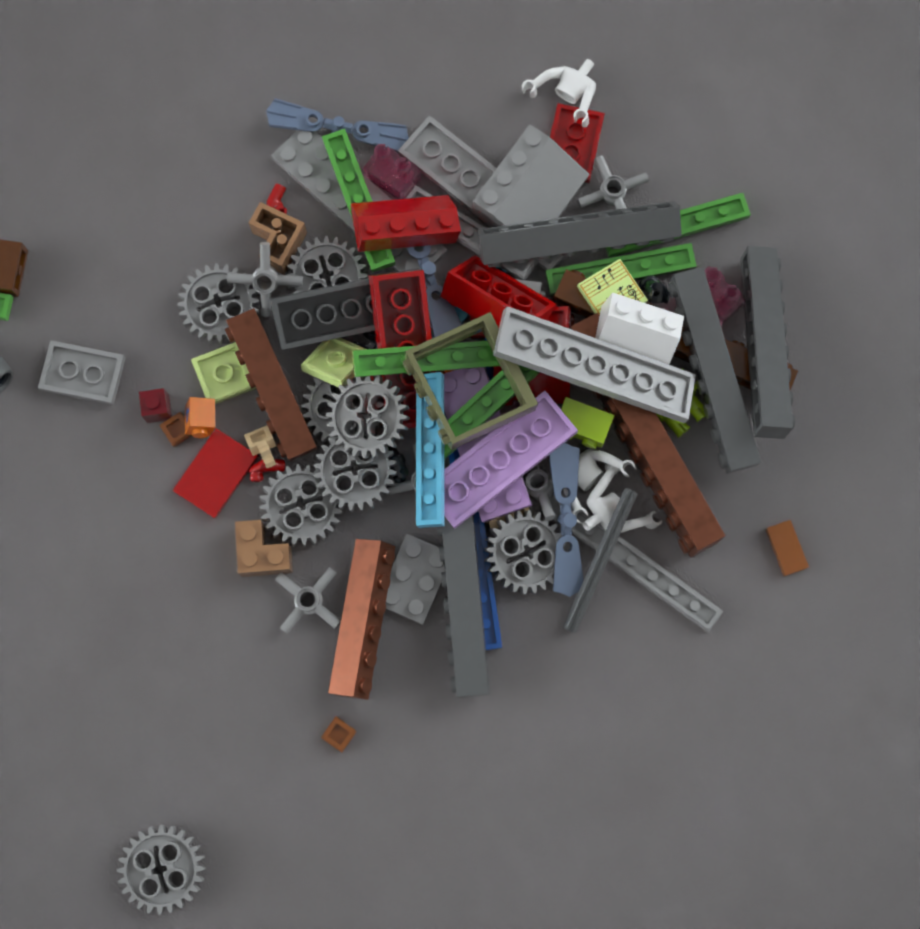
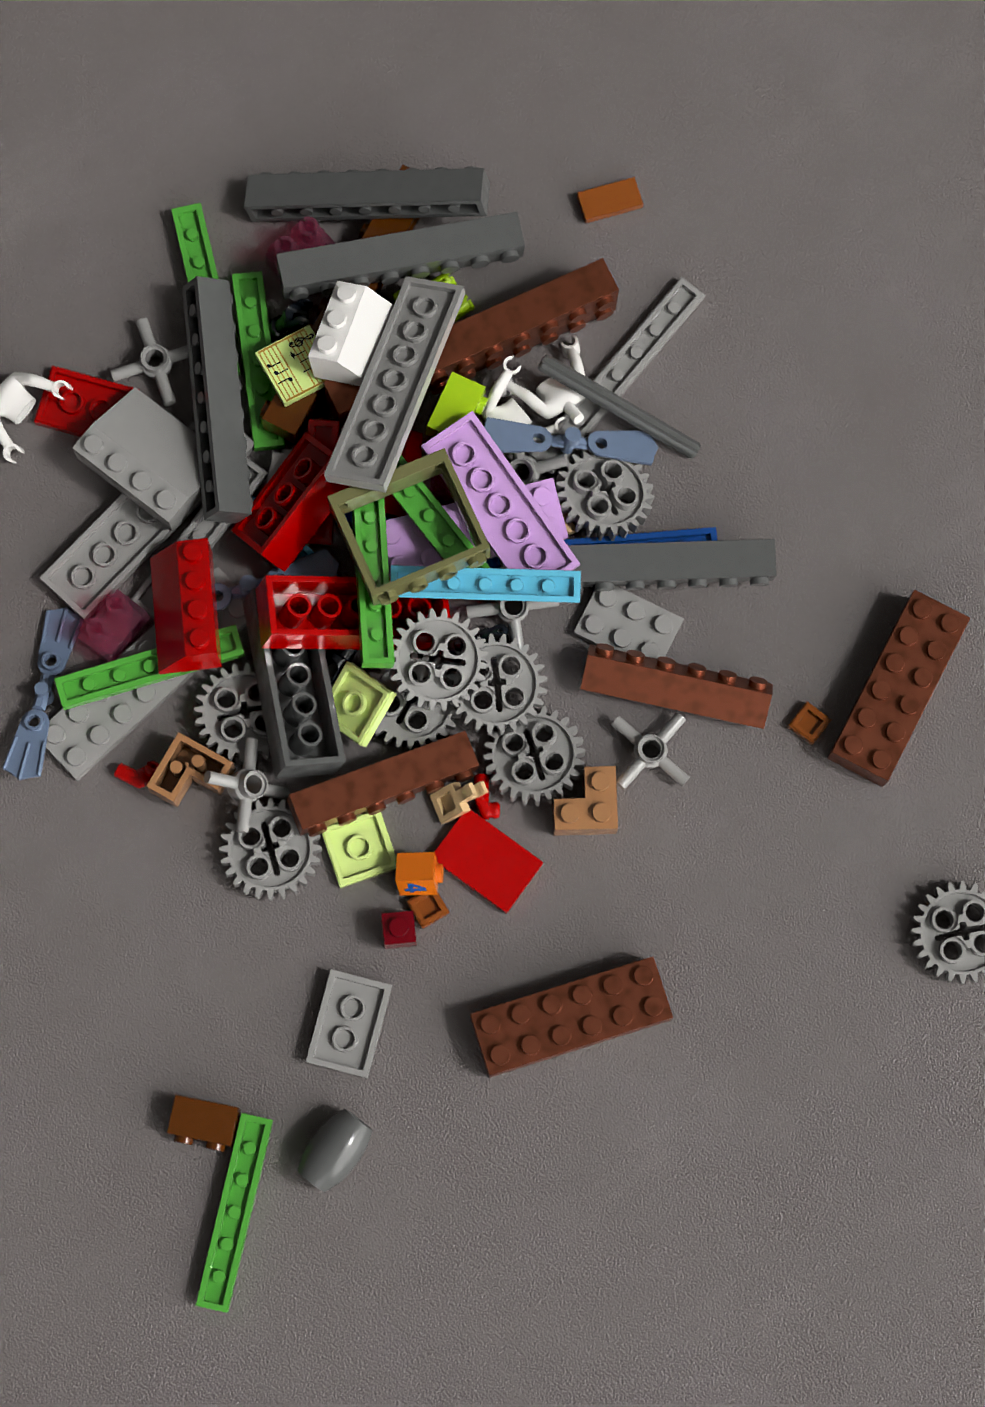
camera: 90 degrees left, 0 degrees up
(86, 544) = (571, 1016): none -> copper brick
(369, 809) = (898, 688): none -> copper brick

